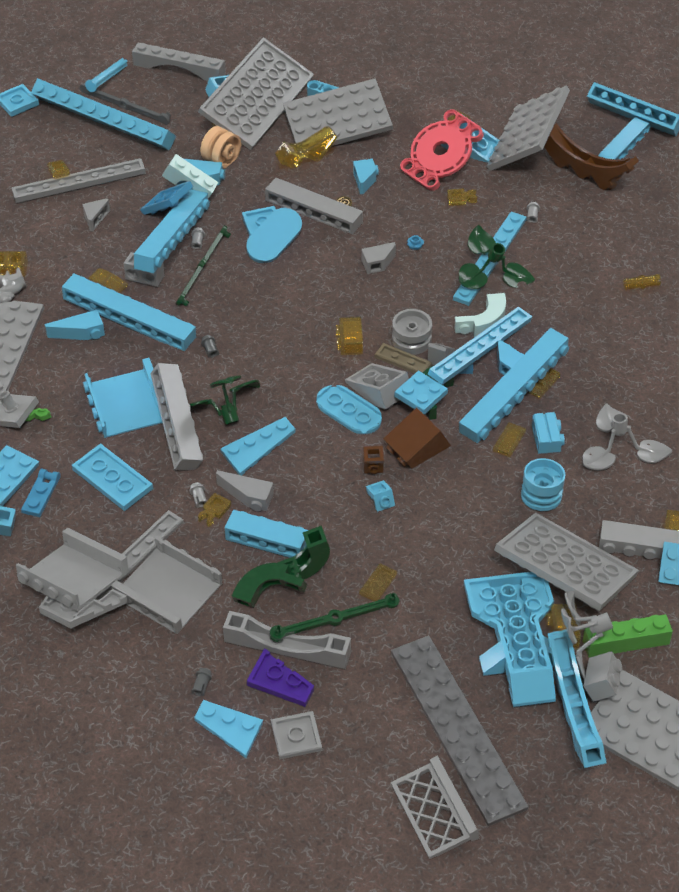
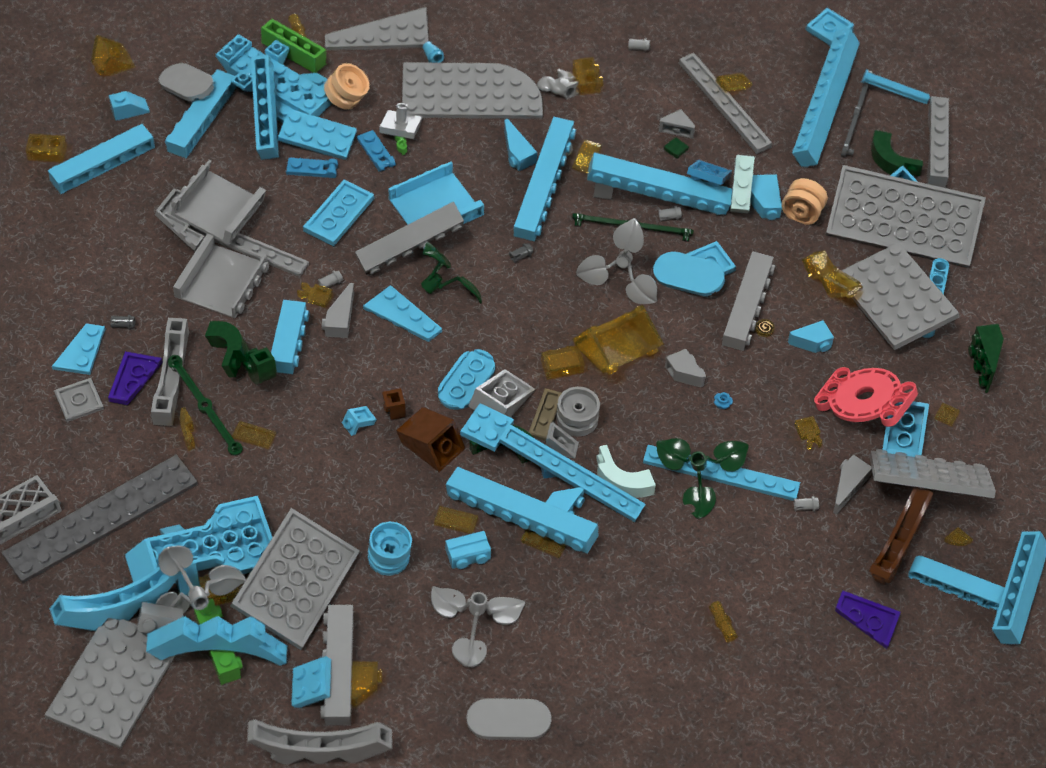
camera: 75 degrees right, 5 degrees up
(38, 437) = (376, 150): none -> dark azure plate
(119, 222) = (676, 147): none -> dark green tile
(182, 95) = (888, 159): none -> dark green arch
(244, 249) = (627, 237): none -> light grey plant
(334, 291) = (619, 340): none -> clear yellow windscreen
(364, 638) = (187, 427): none -> clear yellow slope
(418, 74) = (985, 350): none -> dark green slope
(517, 182) = (852, 476): none -> light grey slope
(578, 136) = (958, 538): none -> clear yellow tile
(638, 631) = (216, 634): none -> medium azure arch
(646, 198) = (868, 616): none -> dark purple wing

